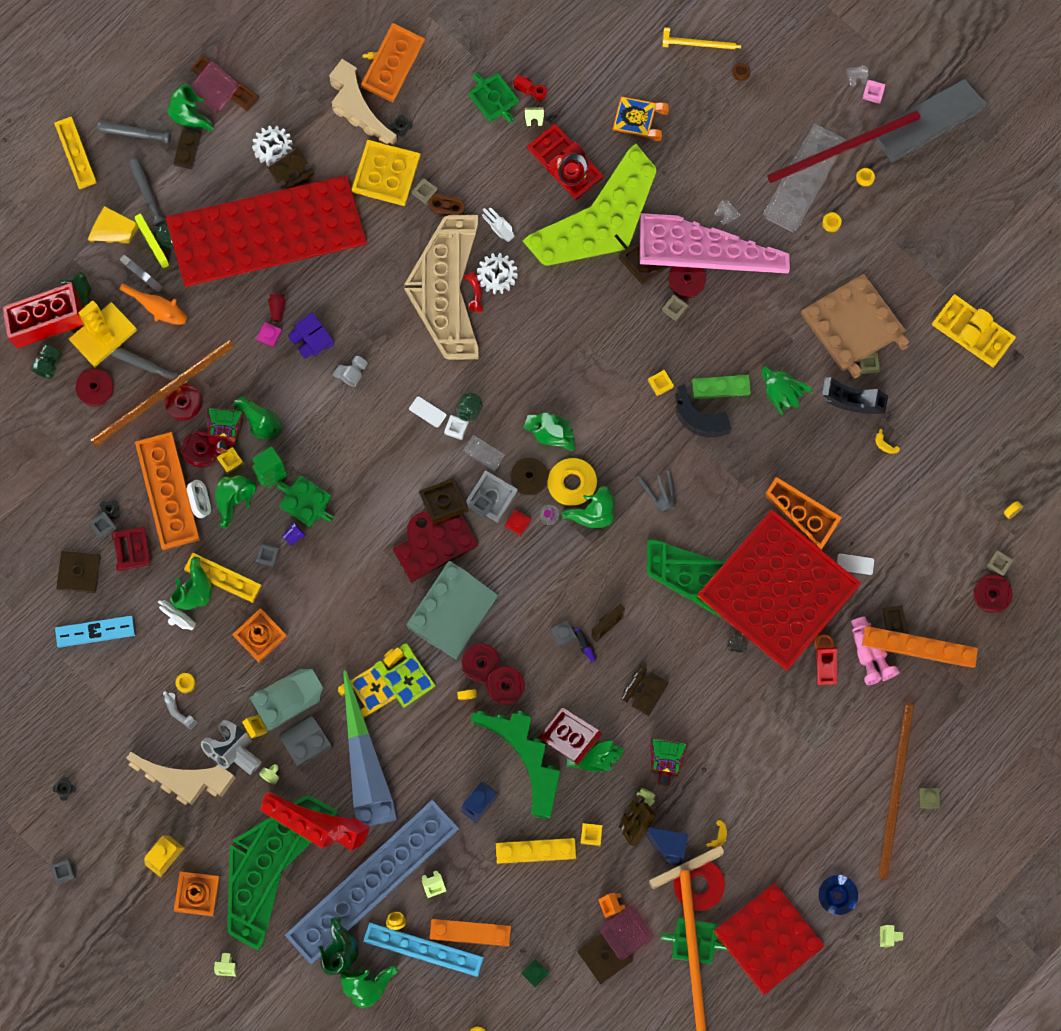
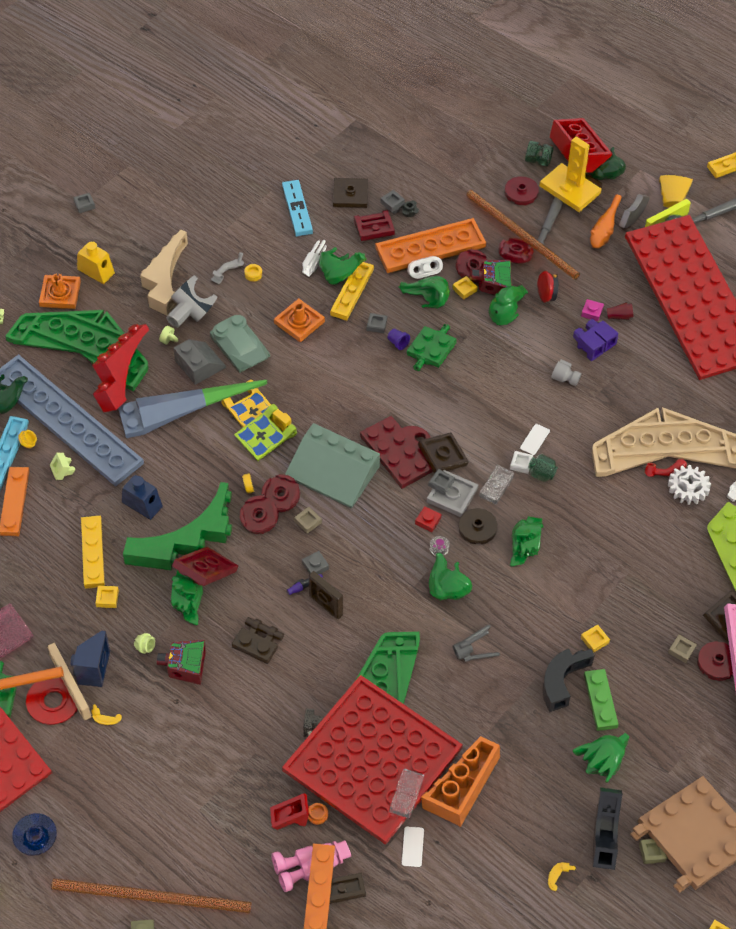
camera: 85 degrees right, 20 degrees down
(58, 788) = (156, 197): pearl dark grey plate -> none
(242, 374) = (547, 286): none -> red piece
(255, 726) = (211, 319): yellow plate -> none
(268, 468) = (457, 305): green brick -> none
(514, 637) = (307, 520): none -> dark tan plate
(564, 468) = (492, 561): yellow piece -> none
(610, 904) = (37, 615): orange tile -> none
(636, 820) = (118, 629): dark brown plate -> none
(819, 561) = (406, 793): none -> clear slope

